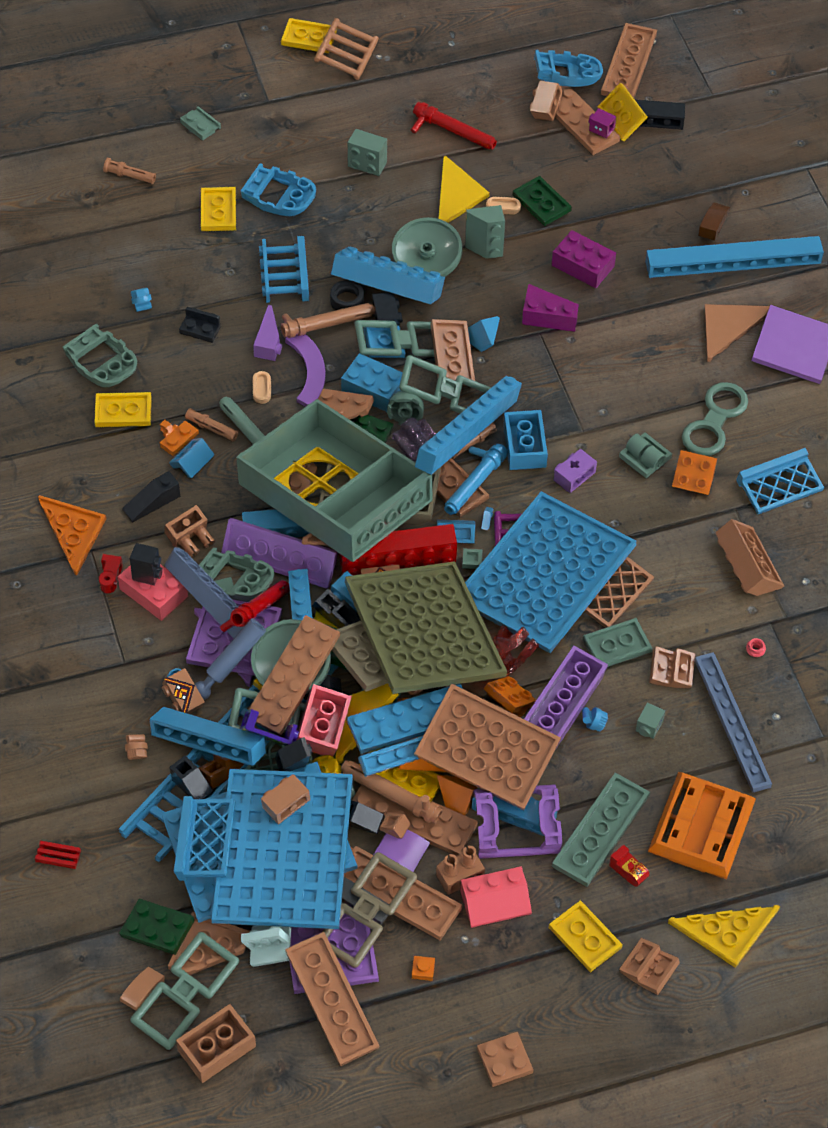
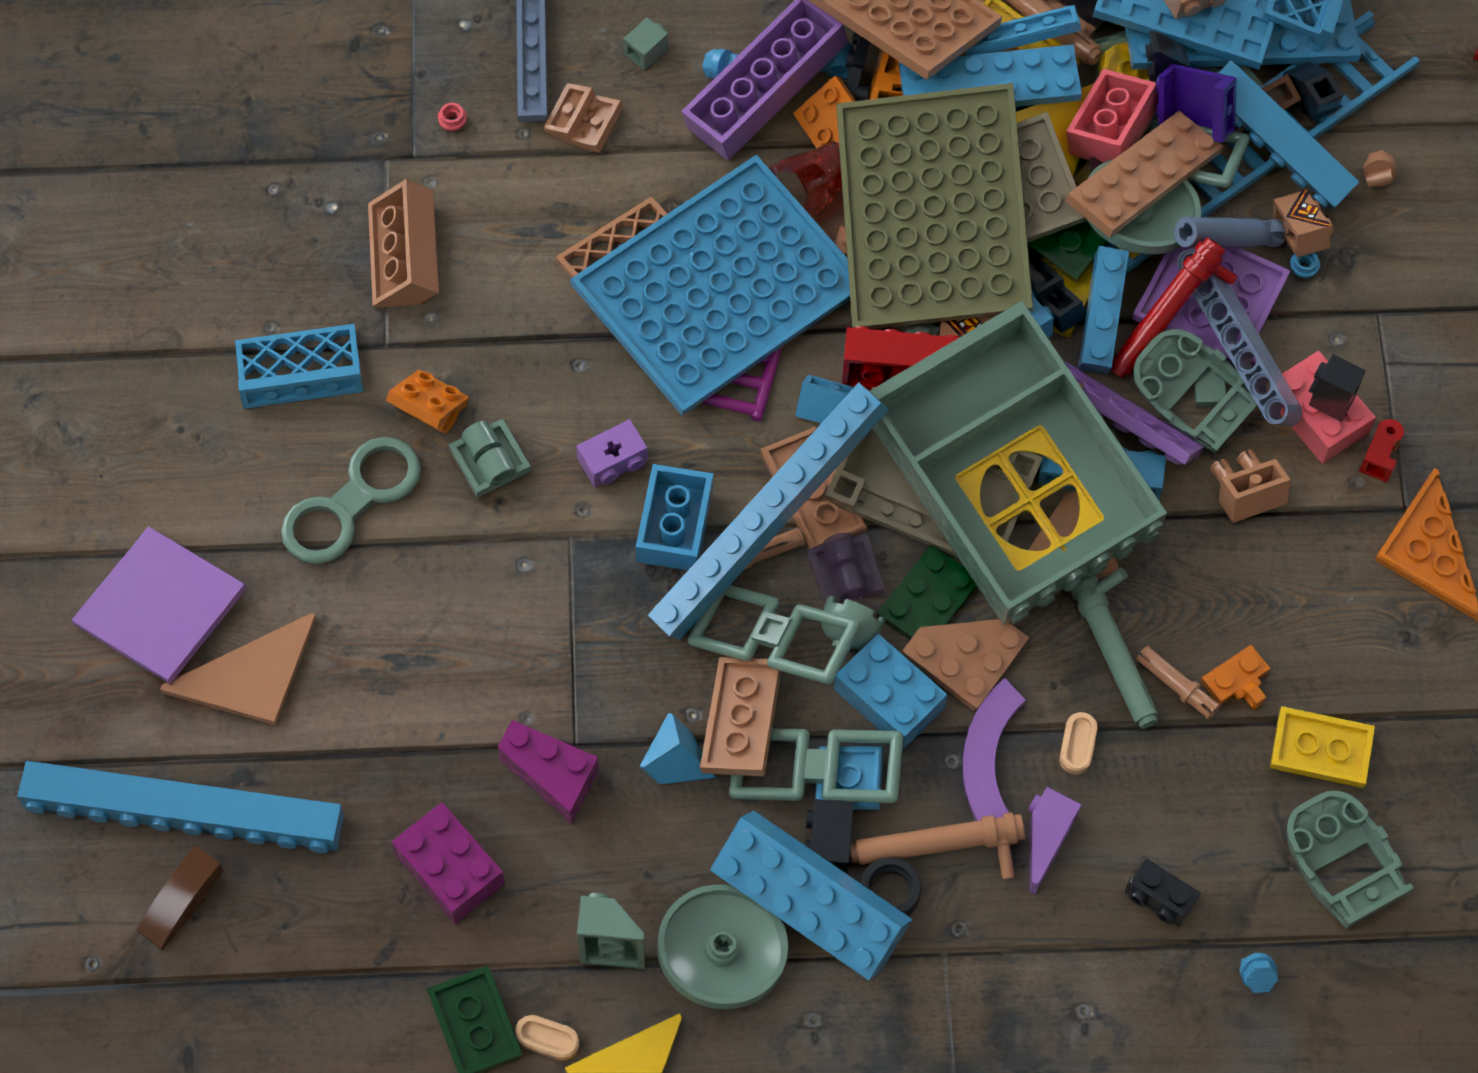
camera: 165 degrees left, 10 degrees up
(153, 496) = (1295, 566): black slope -> none
(192, 457) = (1222, 629): dark azure panel -> none
(300, 275) = (958, 986): dark azure fence -> none
(471, 558) = (820, 345): sand green plate -> none
(488, 512) = (775, 410): dark azure tile -> none
(490, 461) = (739, 496): dark azure cylinder -> none
(618, 642) = (647, 171): sand green tile -> none

